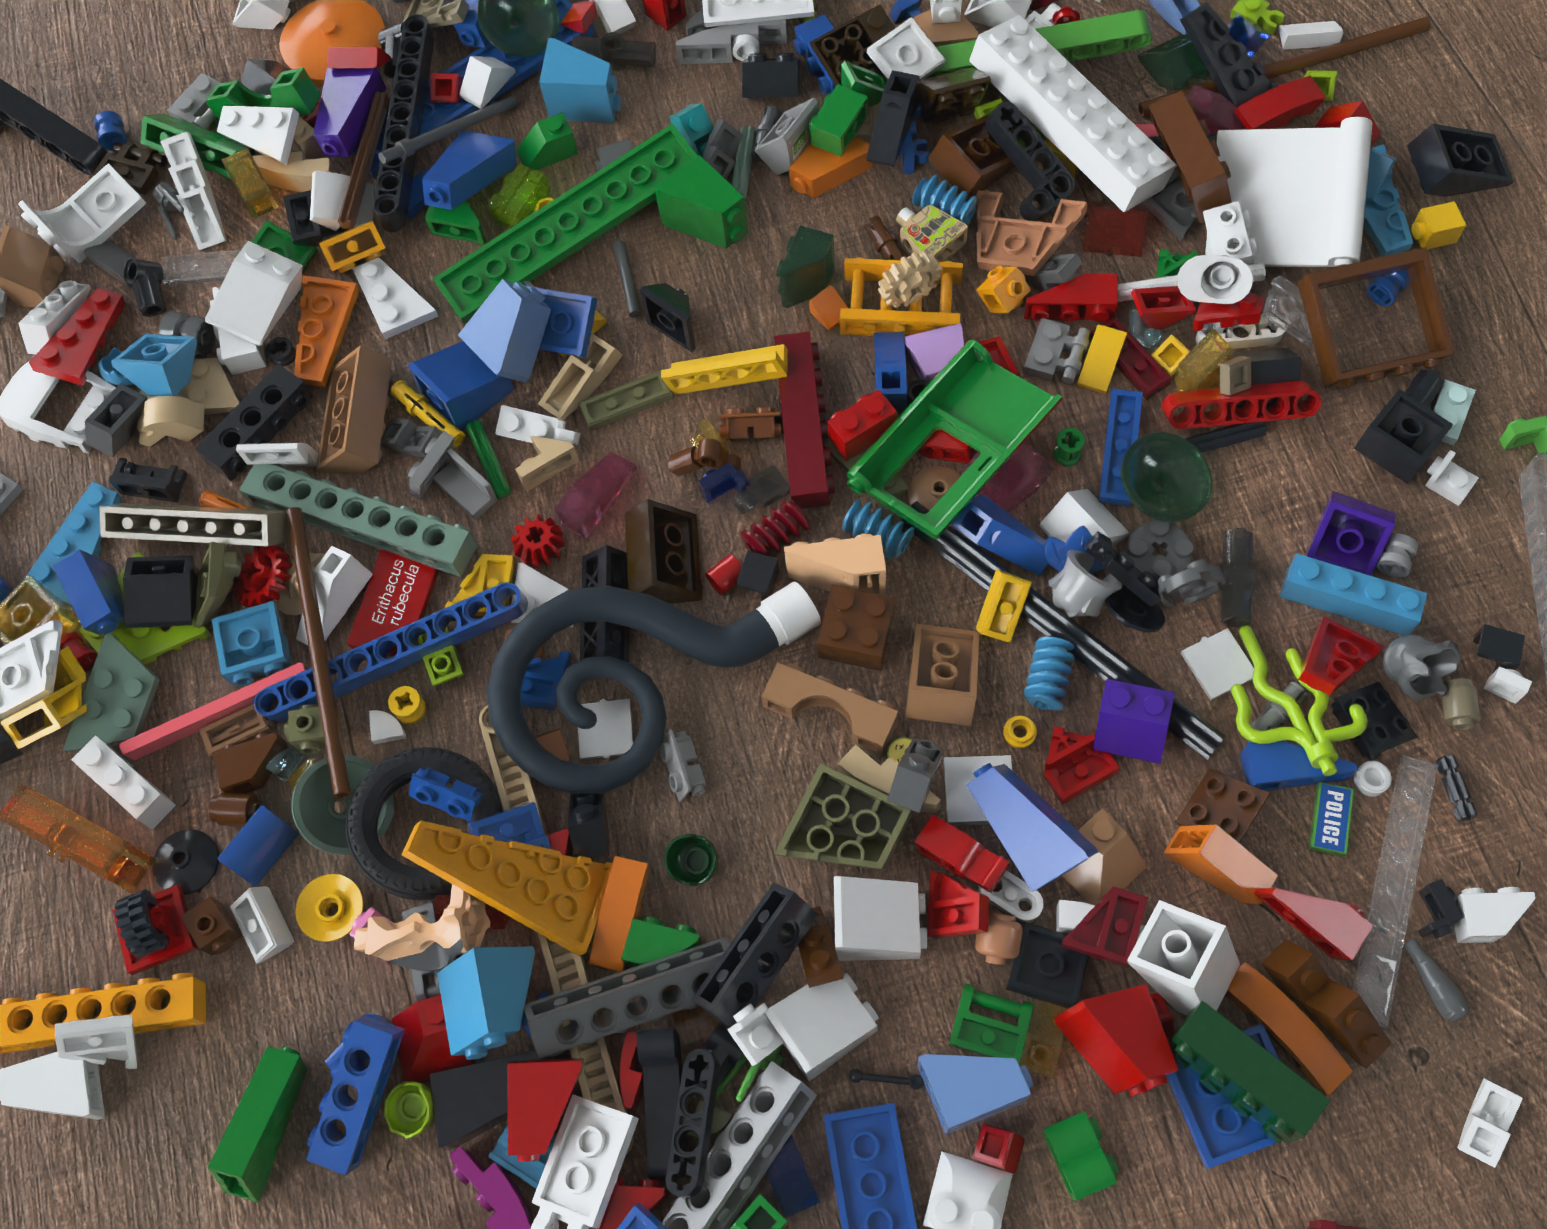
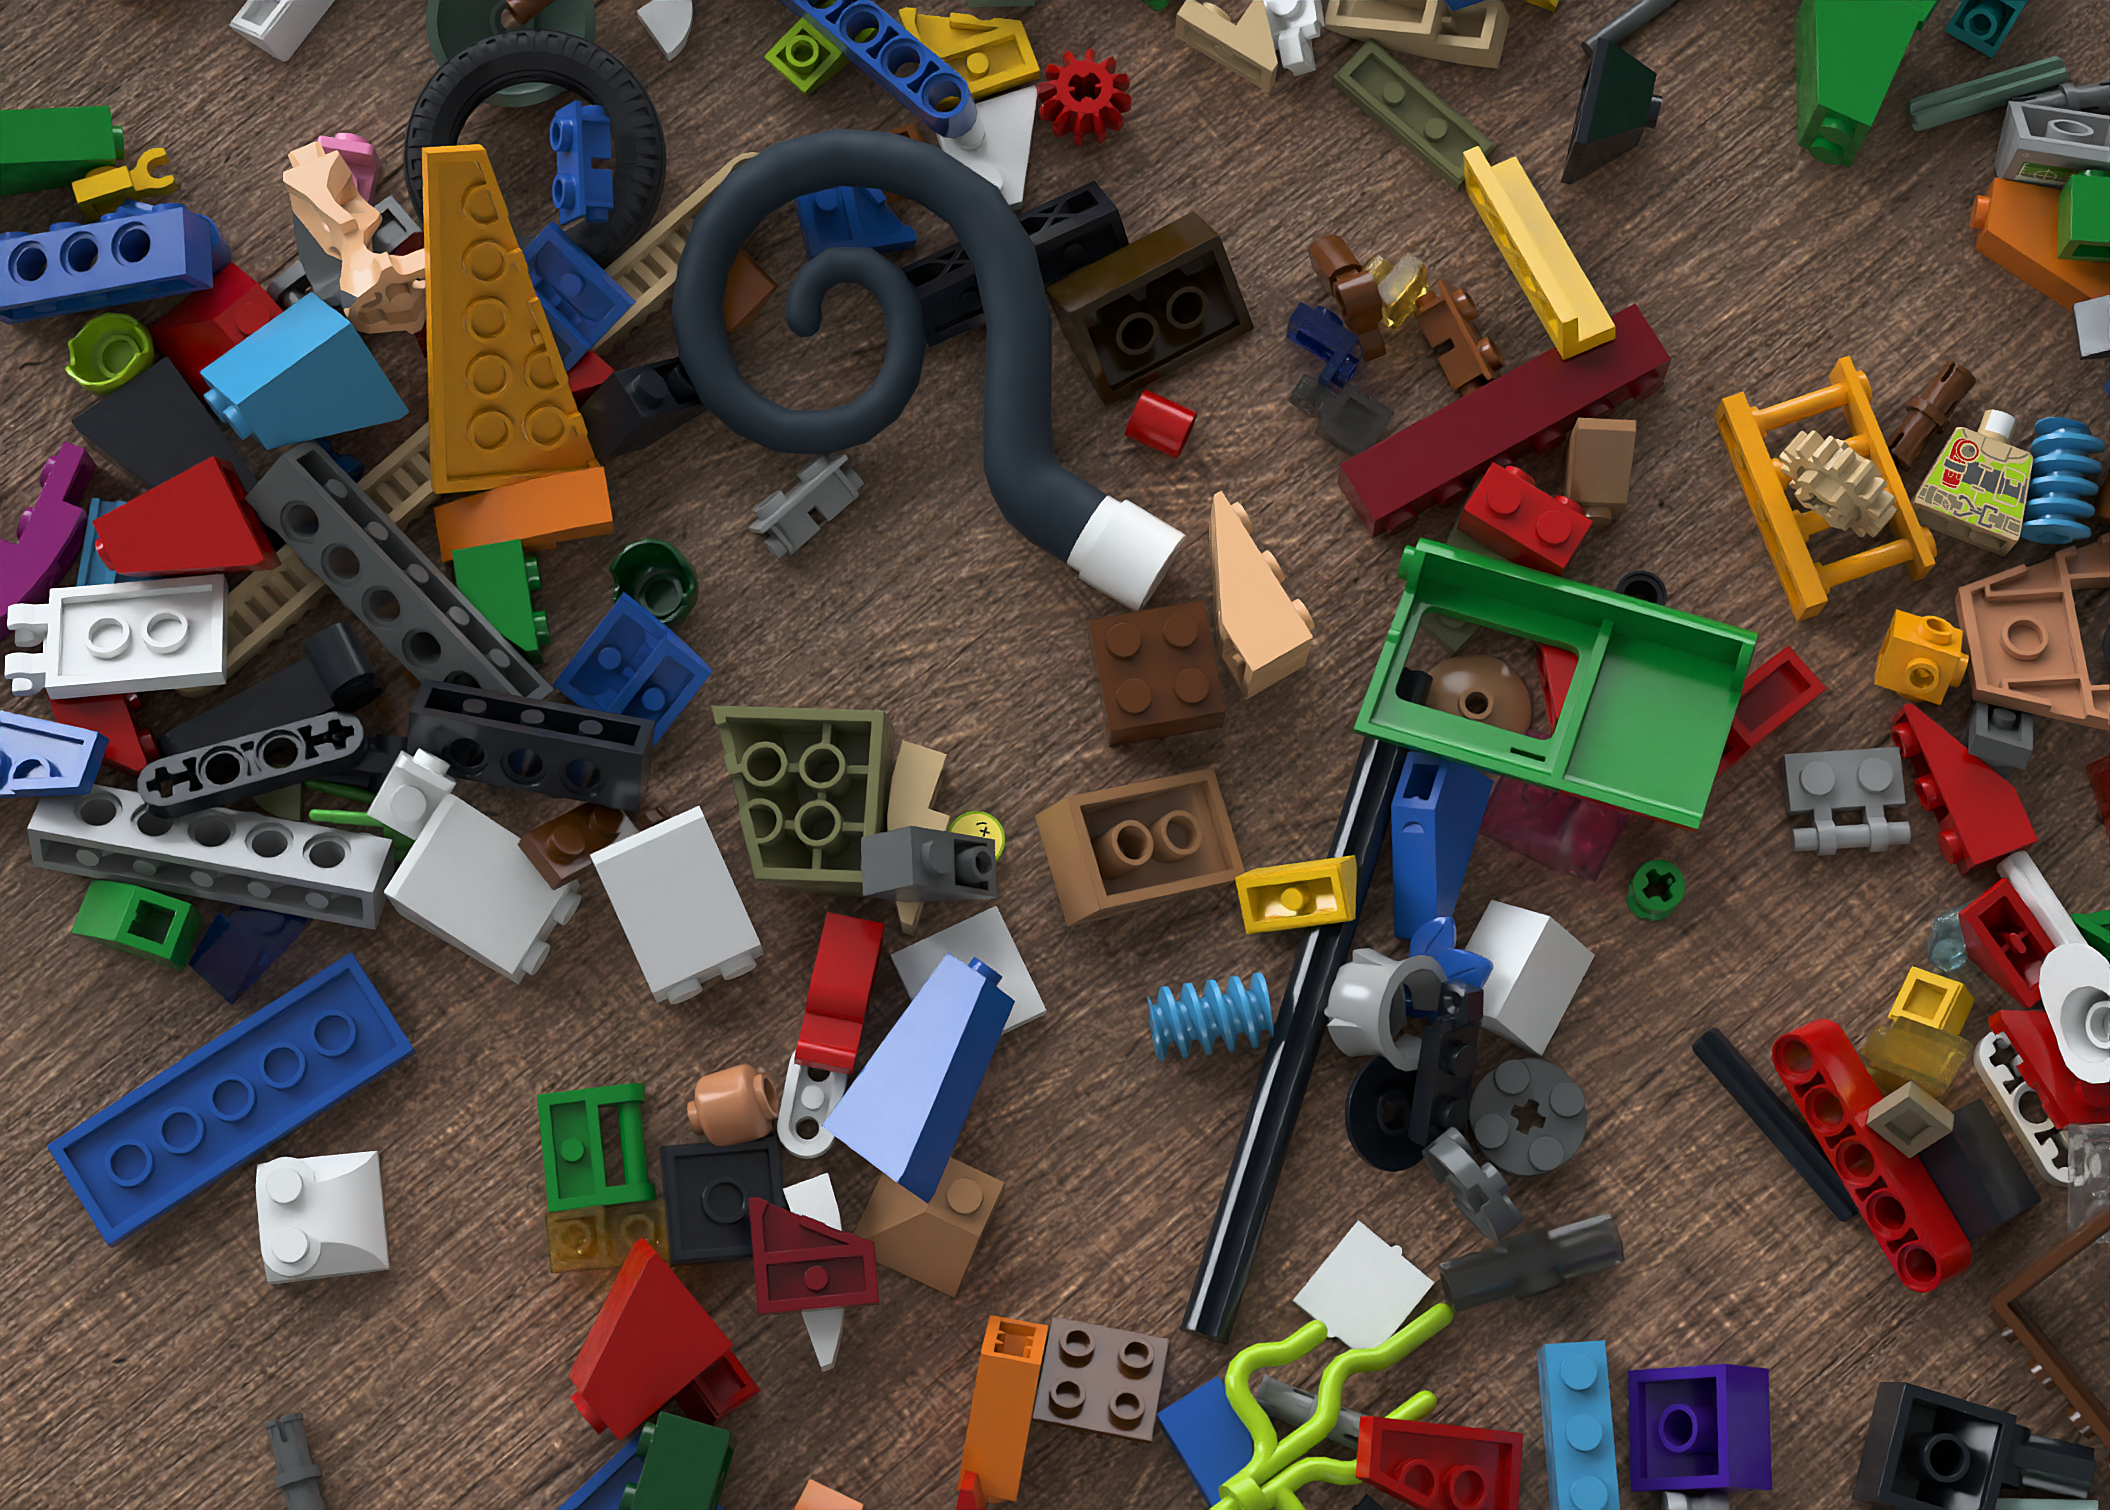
camera: 55 degrees right, 10 degrees up
(314, 1070) = (110, 186): none -> yellow plate
(319, 897) = (345, 63): yellow dish -> none
(411, 711) = (719, 48): yellow wheel -> none
(593, 494) = (1215, 146): clear pink slope -> none
(612, 732) = (818, 367): white piece -> none
(630, 1080) = (286, 645): red slope -> none
(721, 147) = (1988, 39): dark grey slope -> none
(731, 890) = (634, 668): none -> blue slope
(758, 574) = (1178, 477): black panel -> none
(775, 529) = (1272, 470): dark red piece -> none
(794, 691) = (1000, 760): medium nougat arch -> none
(806, 266) = (1799, 298): clear green slope -> none
(826, 307) = (1750, 369): orange slope -> none
(845, 382) = (1599, 467): none -> medium nougat slope
(862, 521) = (1347, 631): dark azure piece -> none
(891, 368) = (1668, 527): blue slope -> none
(915, 1081) = (464, 1071): black hinge -> none
(933, 349) = (1739, 590): lavender torso -> none
(955, 908) = (751, 1018): red wing -> none
(972, 1087) = (475, 1149): medium blue slope -> none
(999, 1148) = (416, 1234): red slope -> none
(1023, 723) = (1099, 992): yellow plate -> none
(1074, 765) = (1079, 1121): red slope -> none
(1079, 1155) = (451, 1354): green brick -> none
(1101, 359) = (1861, 882): yellow slope -> none
(1120, 434) = (1698, 979): blue plate -> none
(1133, 721) = (1180, 1178): dark purple slope -> none
(1138, 364) = (1892, 933): dark red tile -> none
(1178, 470) = (1693, 1098): clear green dish -> none
(1185, 958) = (806, 1399): white slope -> none

